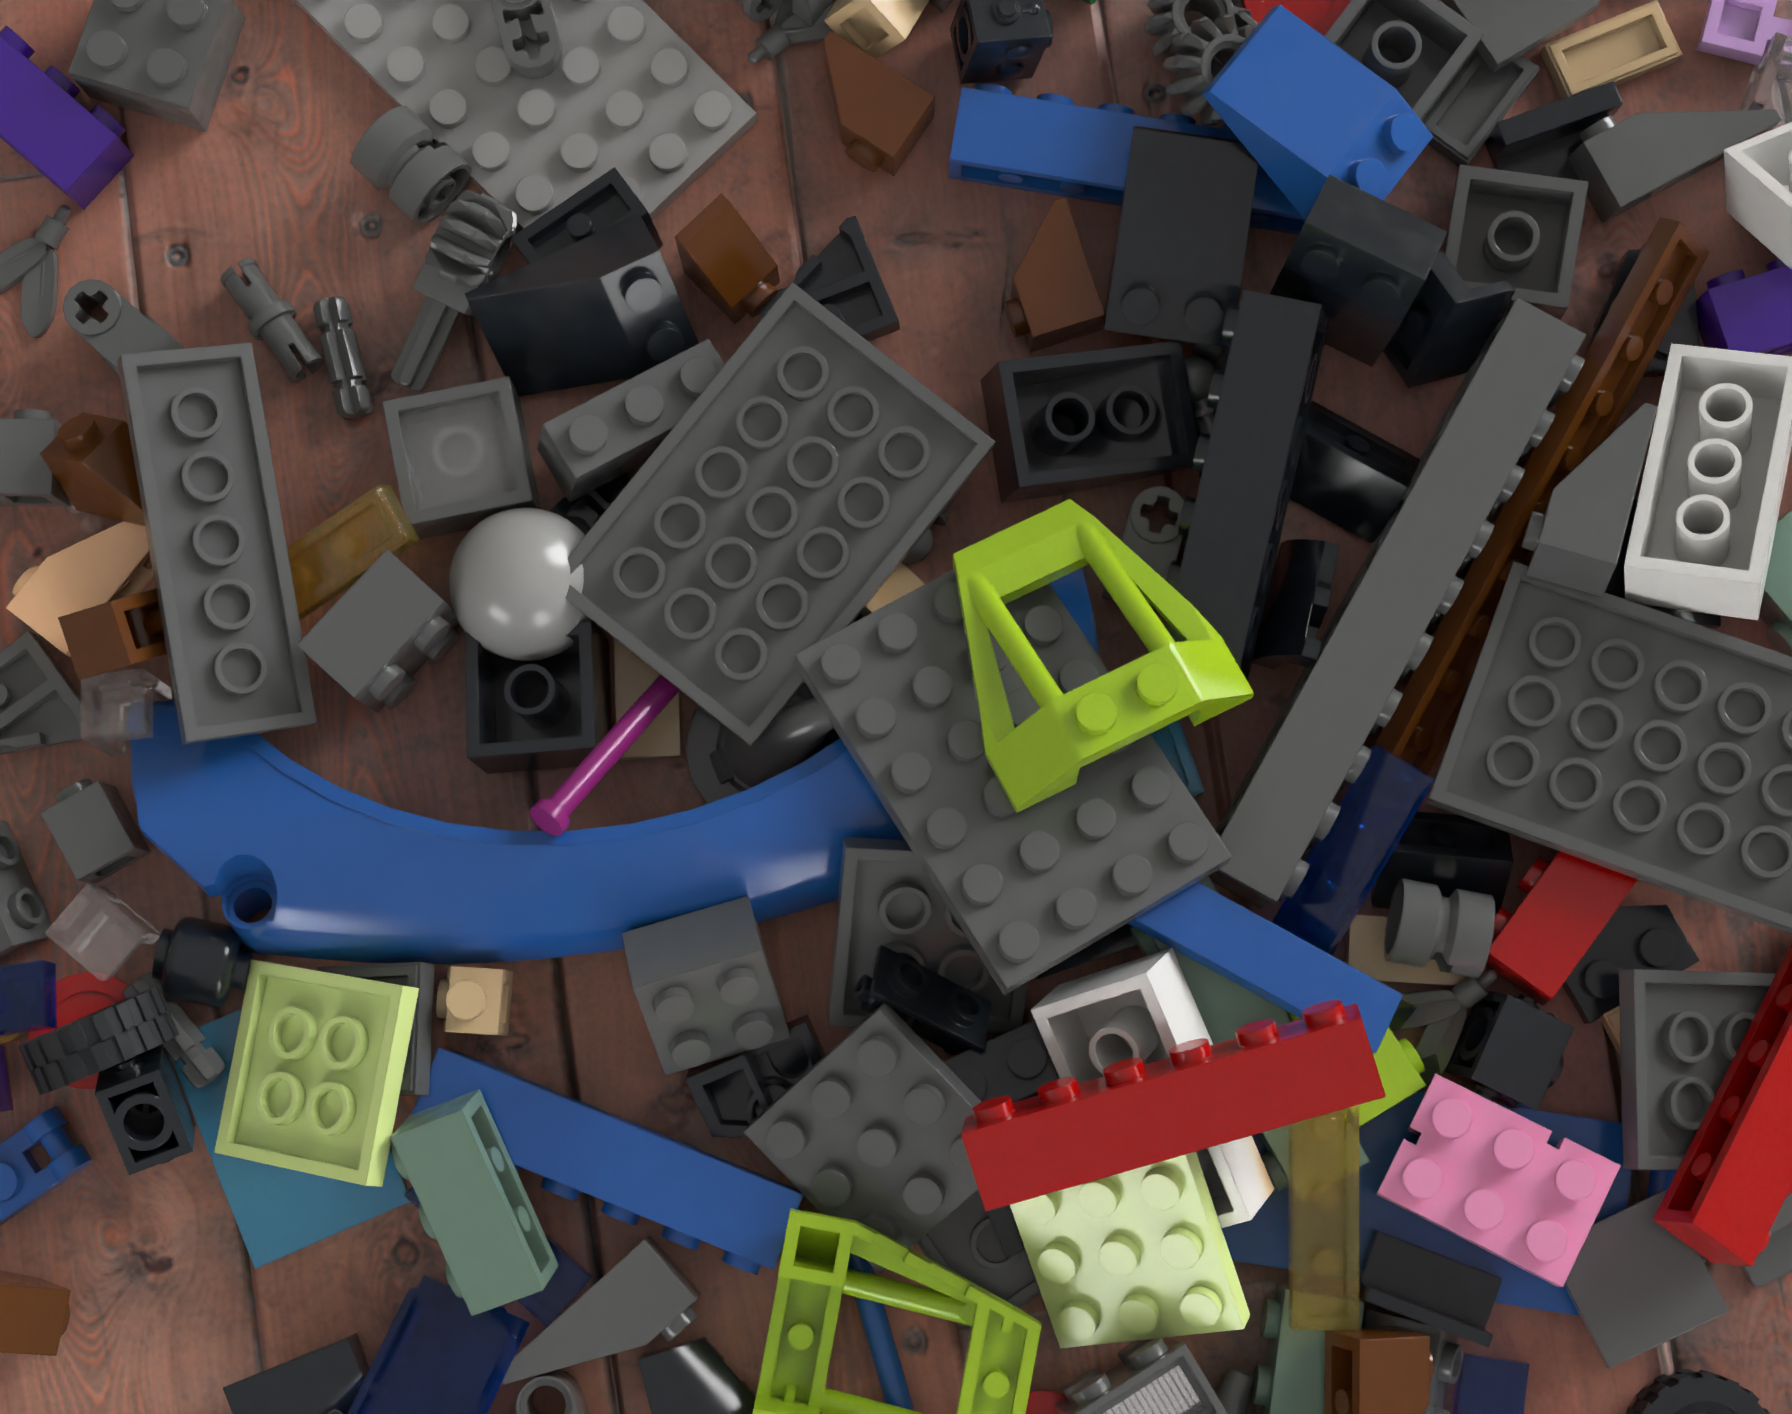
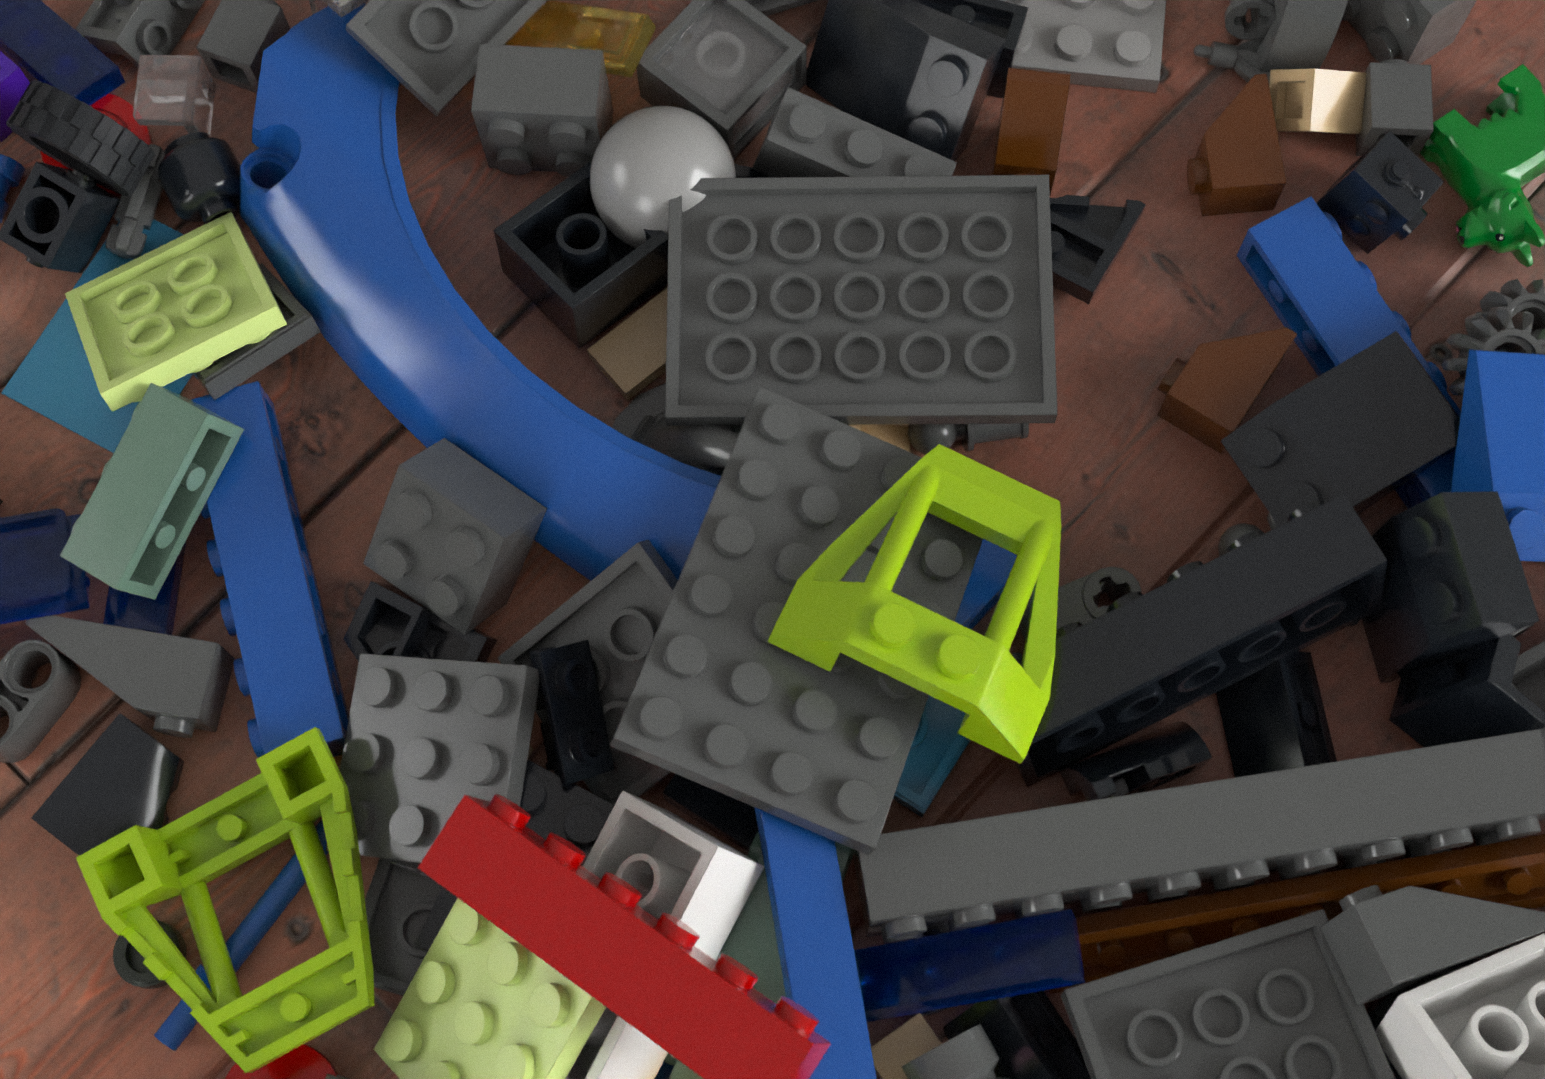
camera: 55 degrees right, 10 degrees down
(475, 1000) = (314, 377): tan brick -> none
(553, 813) = (495, 307): magenta bar -> none
(1089, 419) = (1142, 485): black slope -> none

